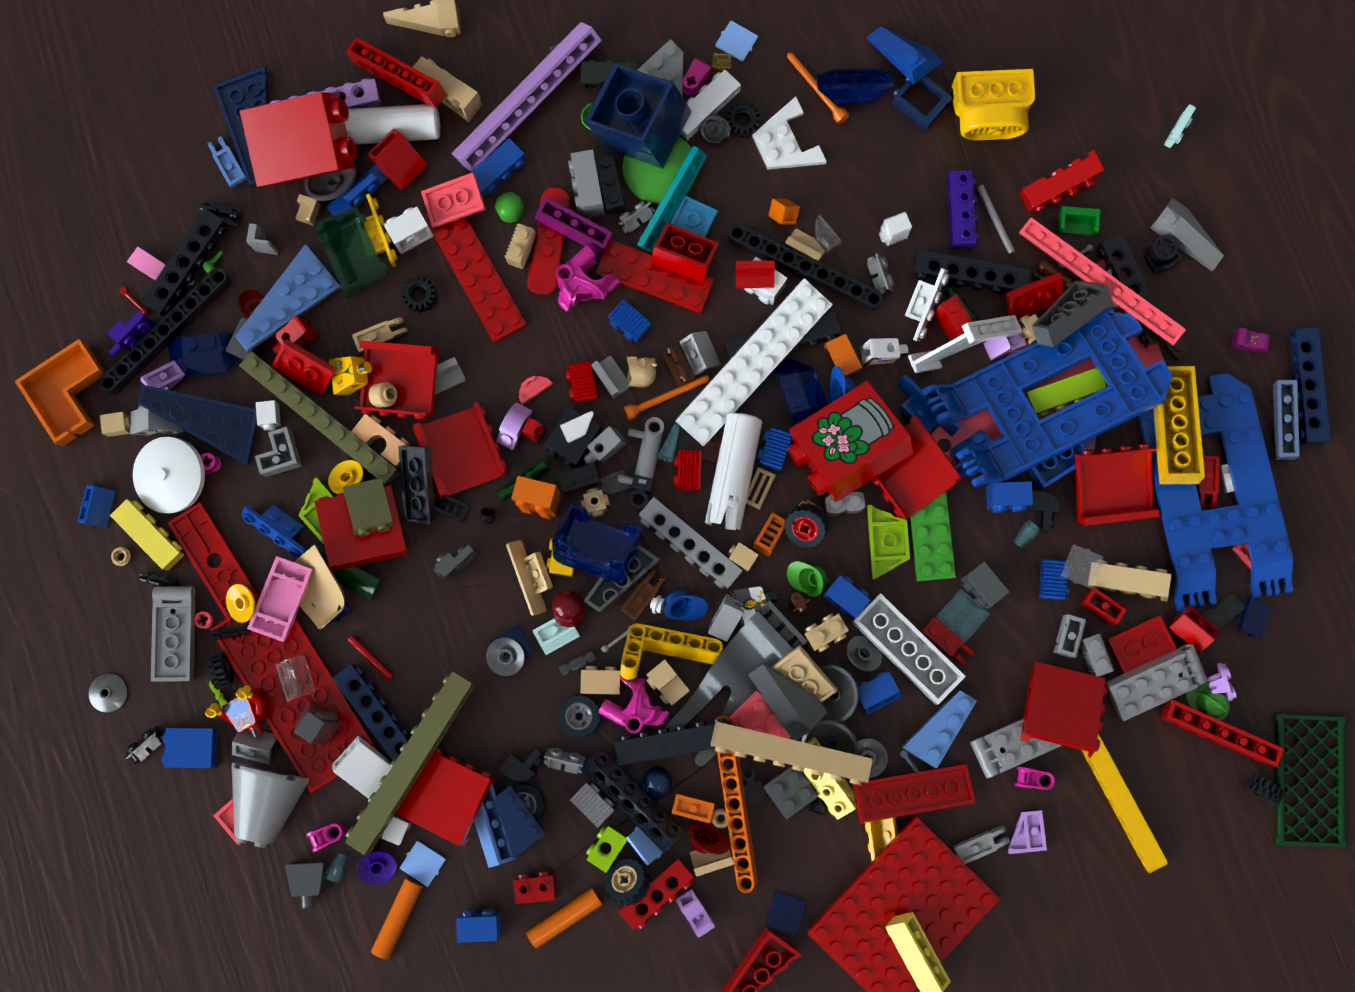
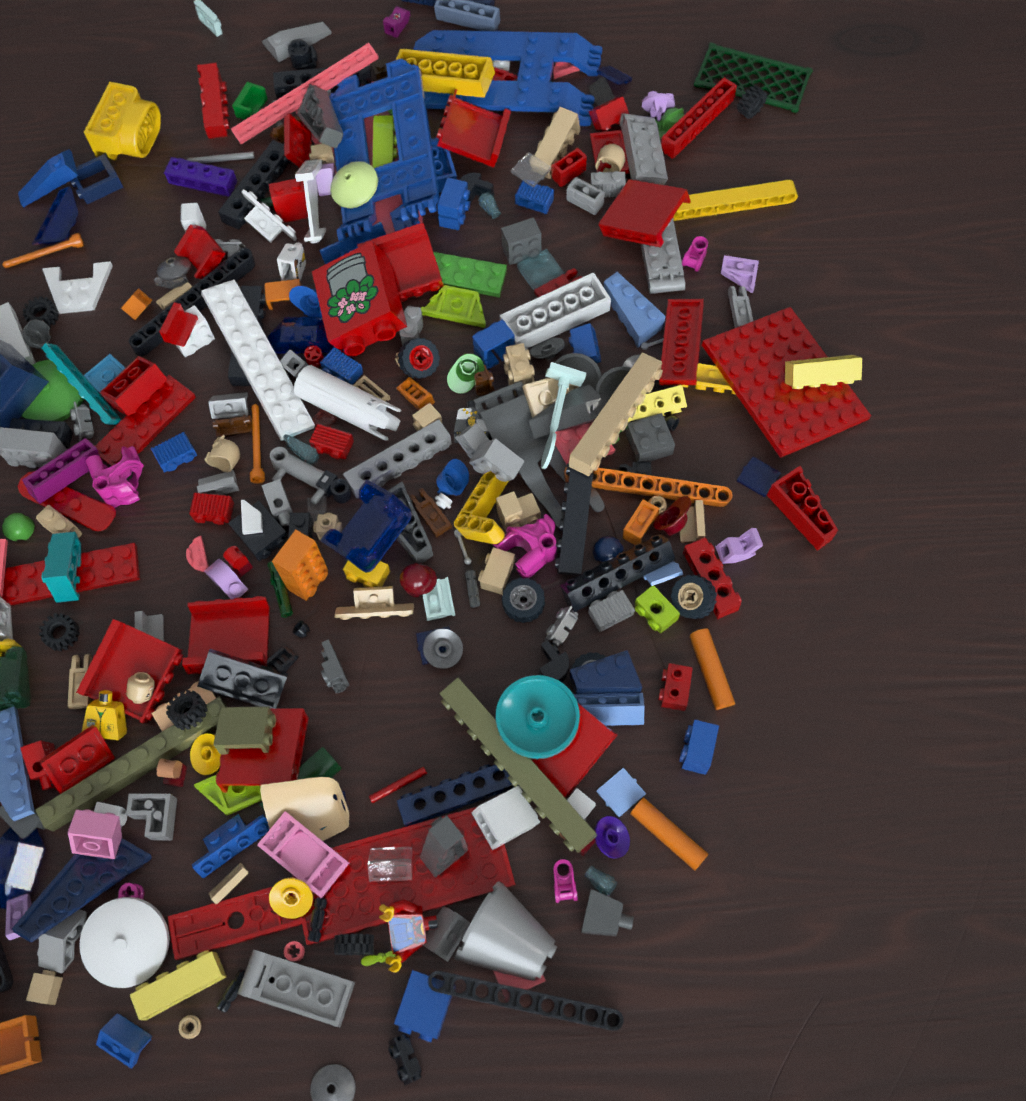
camera: 75 degrees left, 15 degrees down
(209, 841) = (515, 993): none -> black beam
(241, 542) = (228, 883): none -> tan tile
(242, 414) = (95, 834): none -> bright pink brick
(320, 453) = (172, 771): none -> nougat leg
(363, 454) = (192, 716): none -> black tyre
(453, 770) = (537, 717): none -> teal dish
(476, 271) = (62, 565): none -> teal wedge
(706, 642) = (496, 458): none -> light grey brick
(759, 395) = (289, 362): none -> light grey brick
(777, 415) = (312, 352): none -> red wheel
(819, 686) = (565, 376): none -> light aqua piece
(835, 234) = (173, 268): none -> flat silver dish
(864, 253) = (200, 250): none -> red panel
(999, 390) = (354, 184): none -> yellowish green dish
(1125, 653) = (612, 155): none -> tan helmet

